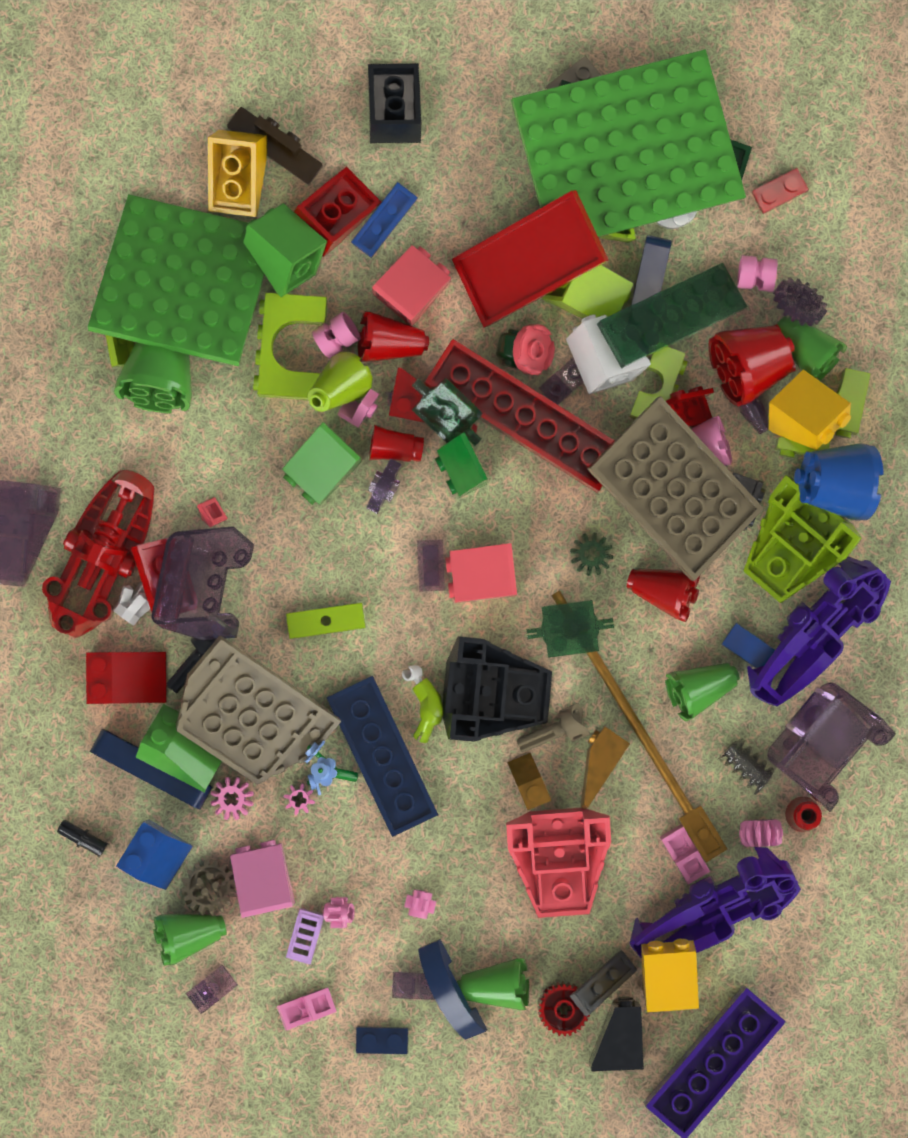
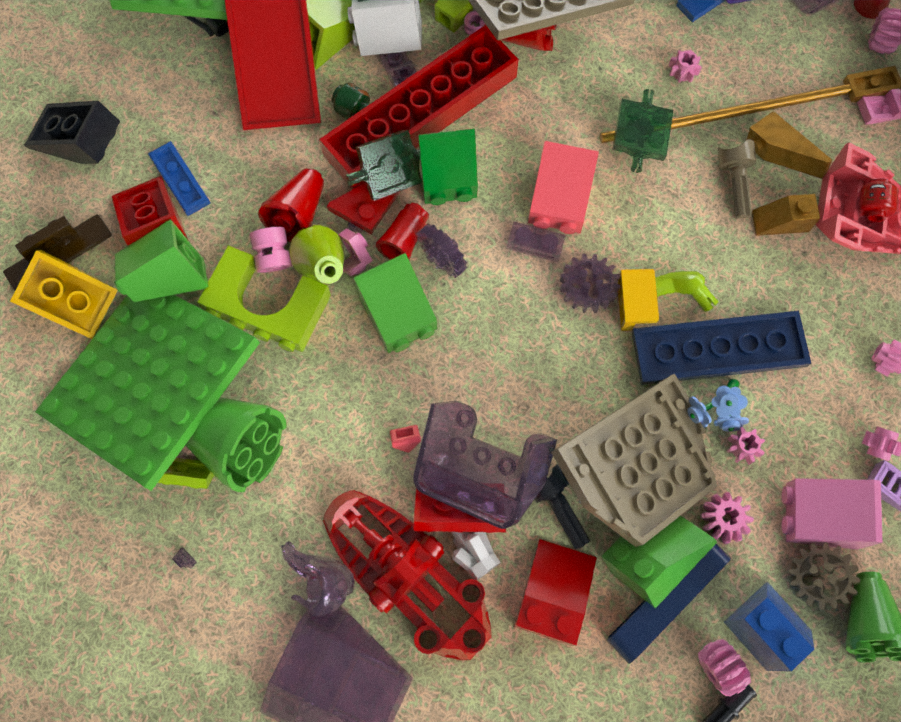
camera: 70 degrees left, 15 degrees down
(52, 370) = (184, 559): none -> piece
(73, 492) = (327, 580): none -> piece
(110, 824) = (724, 667): none -> bright pink gear
(309, 622) = (562, 342): lime tile -> none
(401, 671) = (637, 298): none -> yellow panel
(407, 611) = (604, 291): none -> gear
(412, 284) = (252, 168): coral slope -> none
(492, 691) = (683, 223): black wedge -> none
(533, 349) = (359, 81): coral tile -> none
(562, 857) = (878, 199): none -> red head
(597, 560) = (574, 95): clear green gear -> none
(665, 589) = (631, 39): red cone -> none
(667, 650) = (685, 65): none -> bright pink gear
(700, 687) = (734, 44): bright green cone -> none
(747, 765) = (818, 26): clear smoke piece -> none

